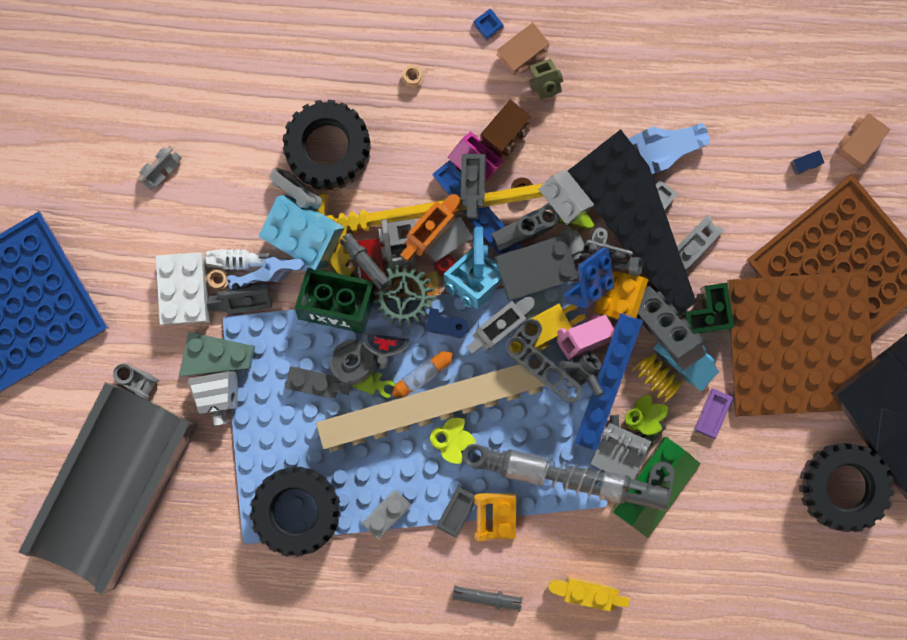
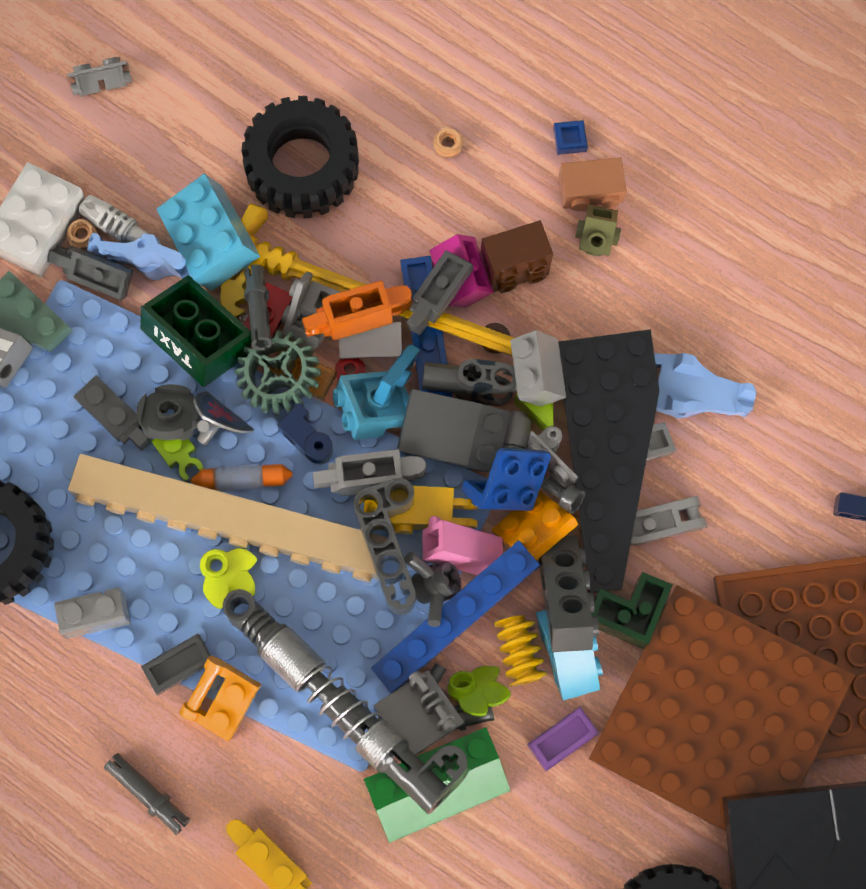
camera: 30 degrees right, 10 degrees down
(295, 189) = (233, 183): light grey plate -> none

